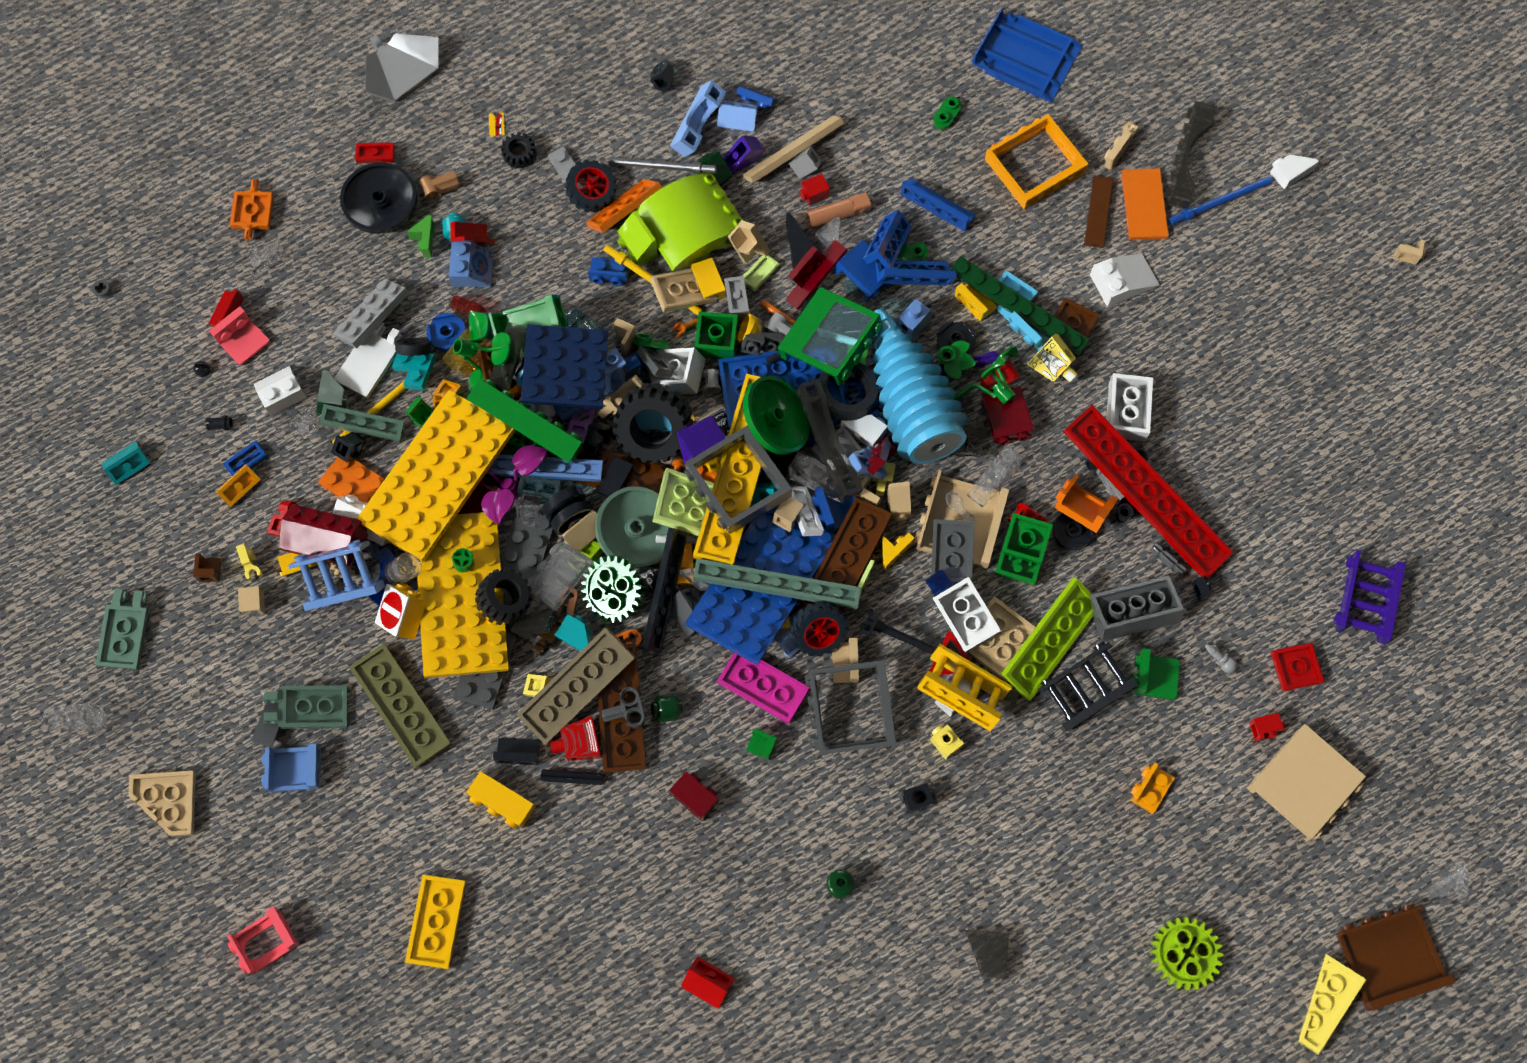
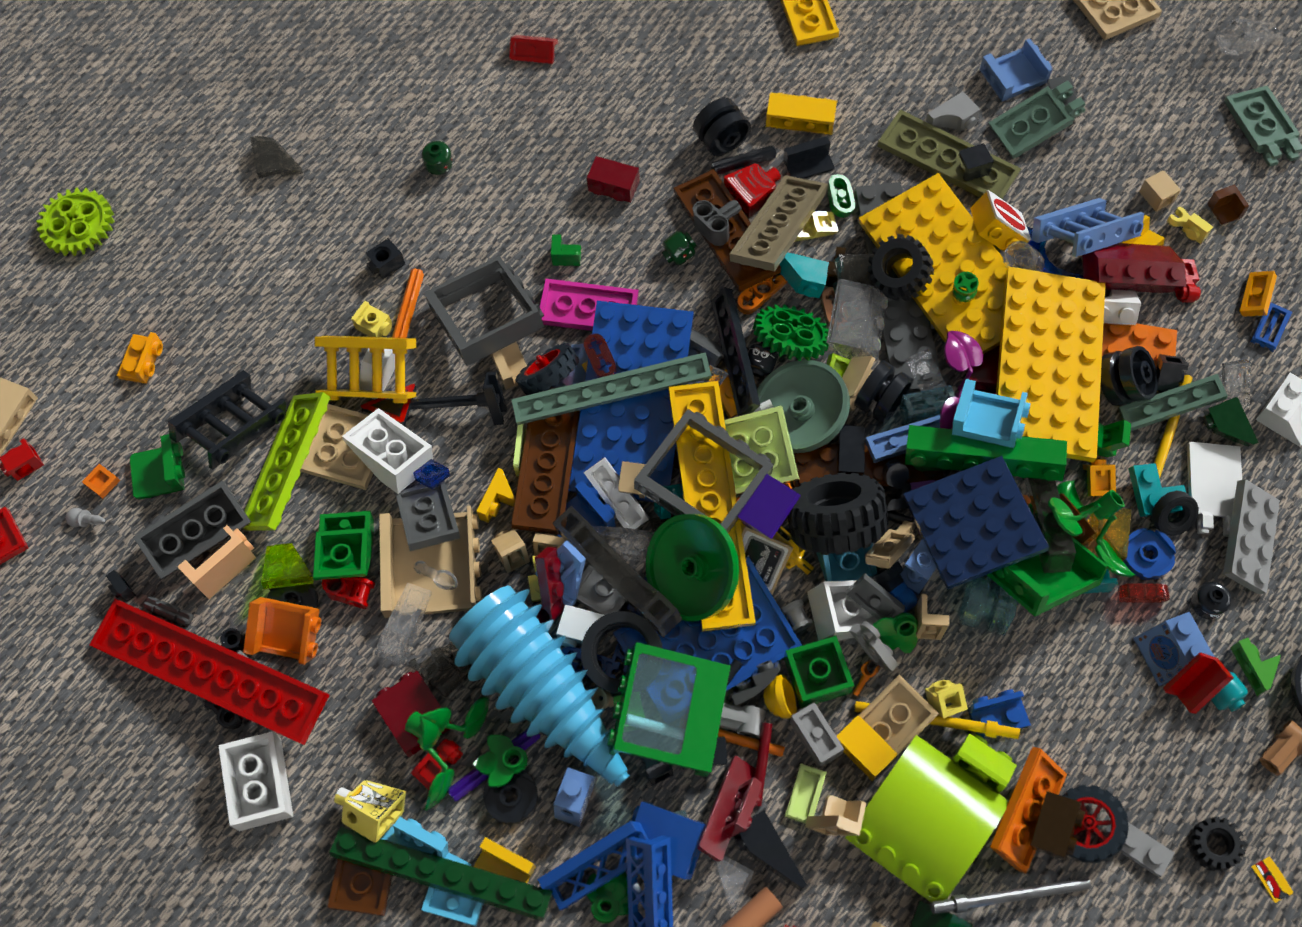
camera: 160 degrees right, 5 degrees down
(368, 745) = (955, 113): none -> light grey arch
(382, 449) = (1128, 376): none -> black wheel
(385, 678) = (976, 161): none -> black panel
(426, 283) = (1211, 600): none -> black head
(508, 437) = (990, 416): none -> medium azure panel
(508, 705) = (842, 197): none -> plate
(578, 804) = (721, 126): none -> black wheel
(613, 186) = (1057, 826): none -> dark brown brick
(640, 289) = (946, 692): none -> light yellow brick
(670, 333) = (869, 640): none -> light grey hinge
(770, 612) = (605, 354): none -> clear red beam
(779, 299) = (762, 756): none -> dark red bar
(914, 744) = (408, 304): none -> orange axle
(1072, 554) = (284, 567): none -> clear neon green wing
(1136, 561) = (222, 565): none -> light nougat panel
(1203, 684) = (101, 481): none -> orange plate

